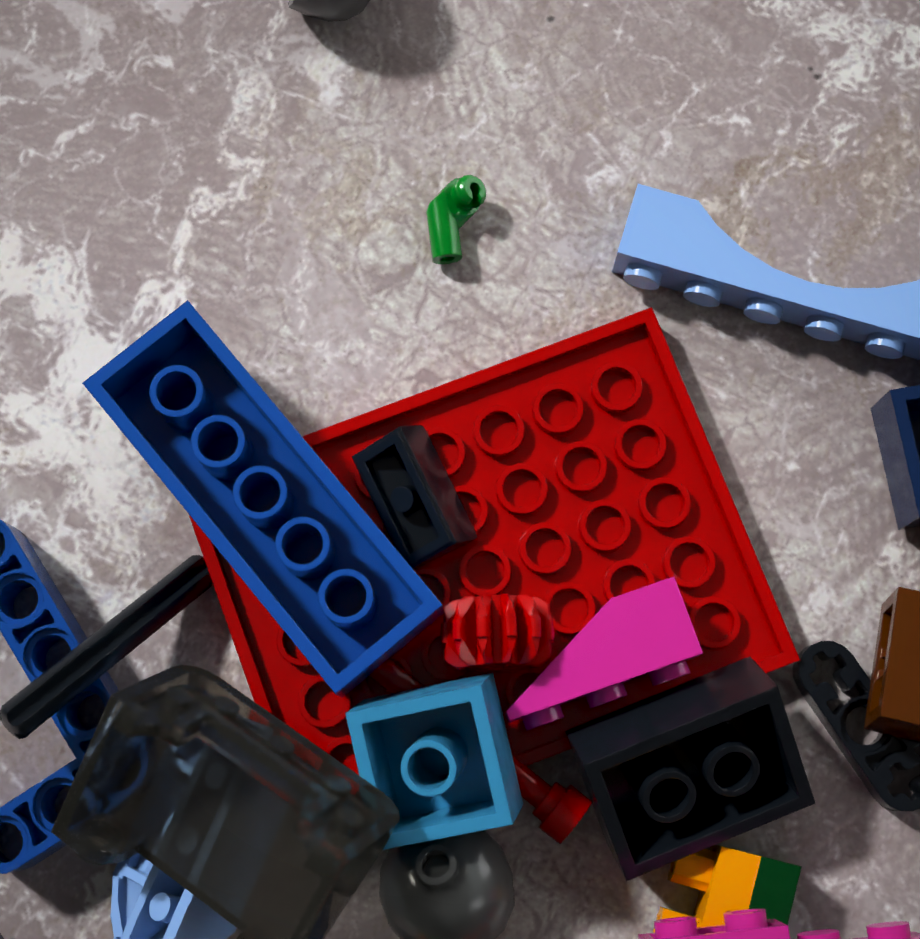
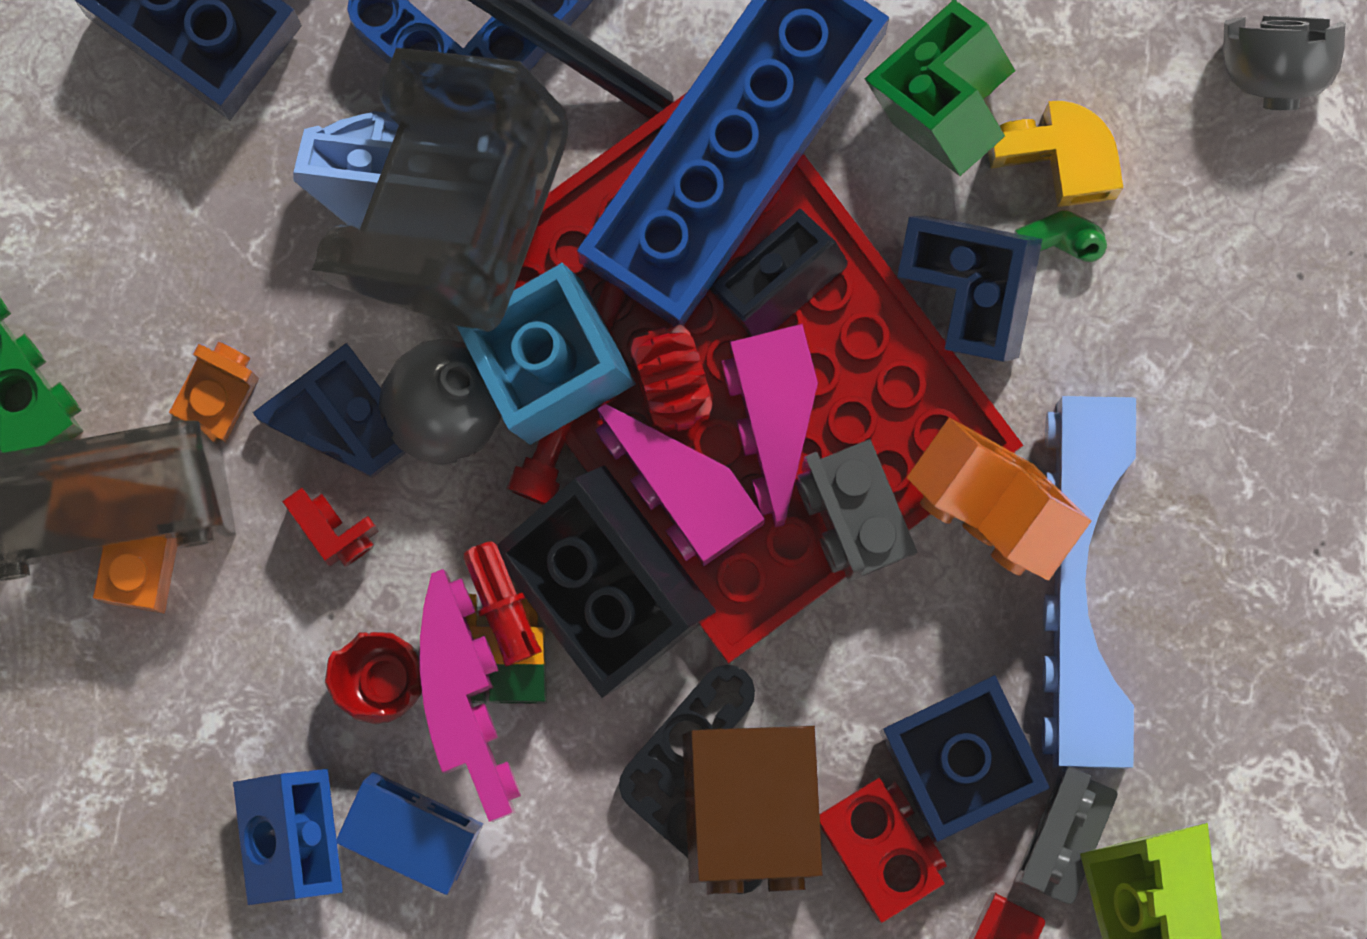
camera: 75 degrees right, 5 degrees up
(274, 283) = (939, 84): none -> green brick
(367, 177) = (1075, 143): none -> yellow brick
(474, 286) = (991, 281): none -> dark blue brick
(549, 530) = (778, 395): none -> dark pink slope
(682, 484) = (857, 510): none -> dark grey bracket
(691, 885) = (501, 603): none -> red axle
(711, 335) = (998, 500): none -> orange brick

